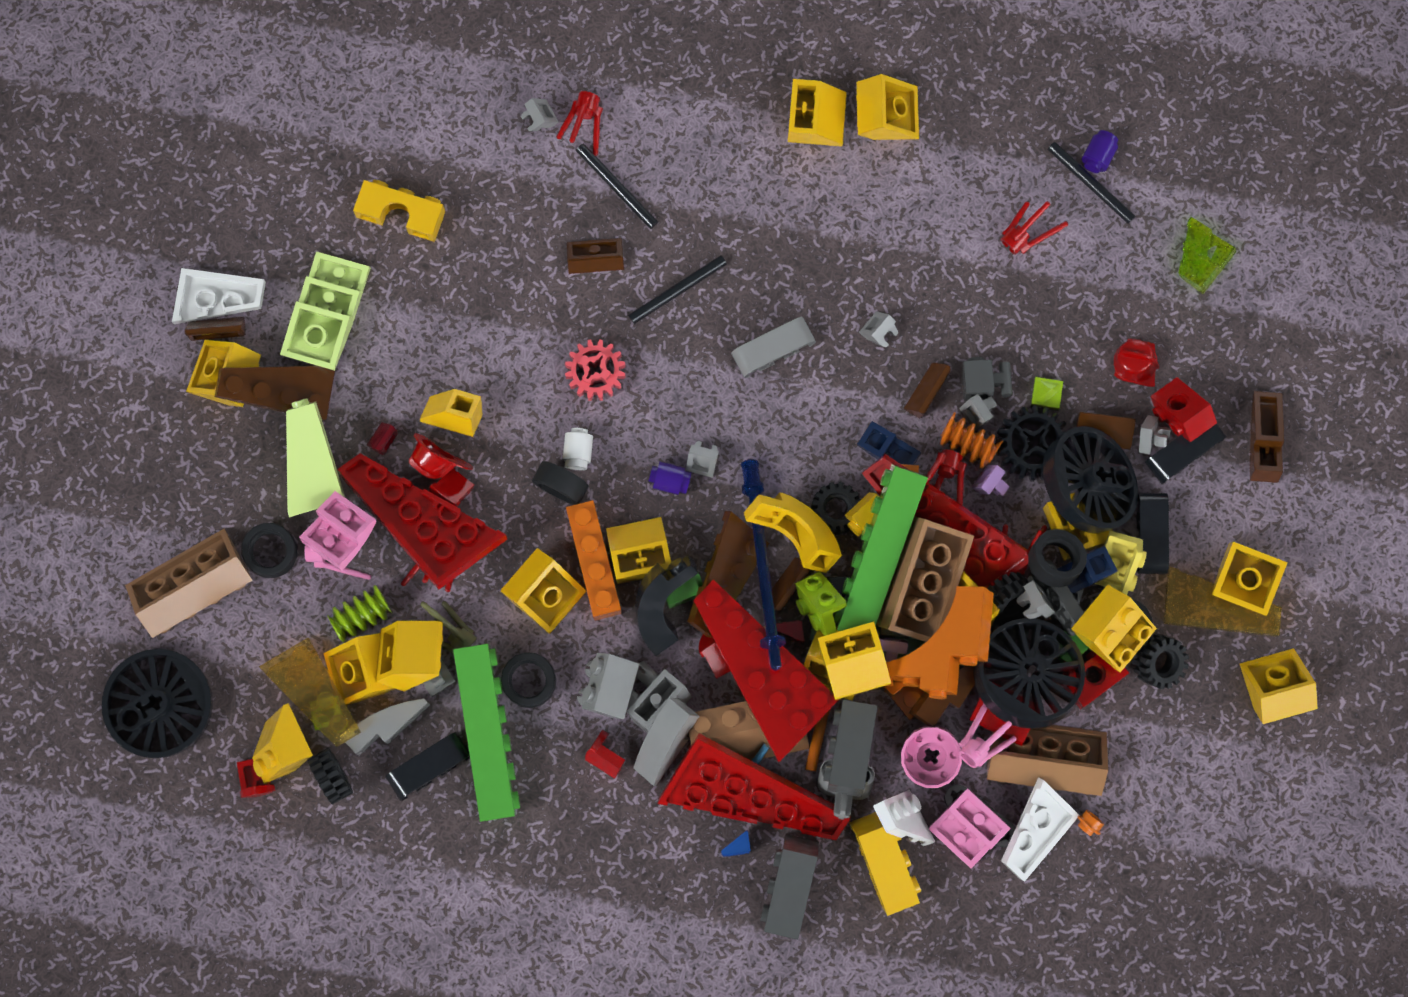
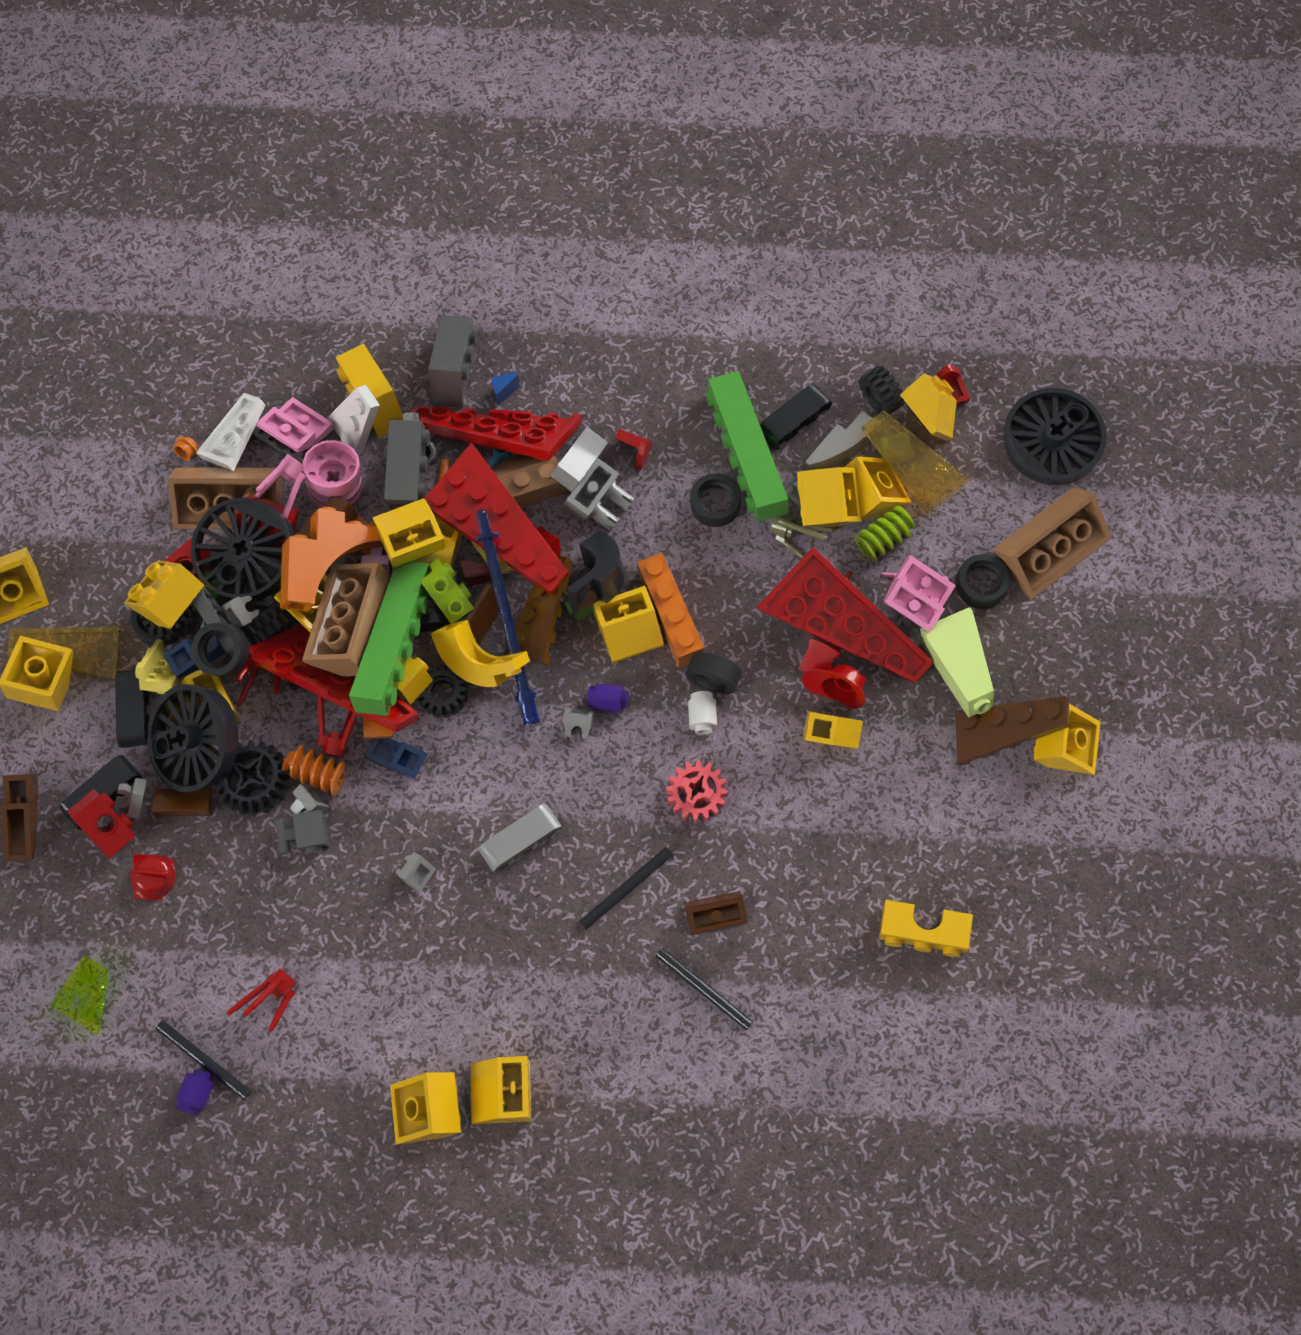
camera: 175 degrees right, 10 degrees down
(214, 295) = (1097, 817): white wing -> none
(215, 328) = (1086, 784): reddish brown slope -> none
(325, 311) = (979, 815): yellowish green slope -> none
(382, 438) = (897, 699): dark red slope -> none
(540, 113) = (796, 1052): light grey tile -> none
(543, 590) = (716, 578): yellow slope -> none
(584, 108) = (749, 1066): red plant -> none
(608, 685) = (639, 494): light grey brick -> none
(927, 389) = (361, 817): reddish brown slope -> none
(991, 481) = (293, 734): lavender tile -> none
(1047, 393) = (241, 831): lime tile -> none
(1172, 668) = (116, 585): black tyre -> none

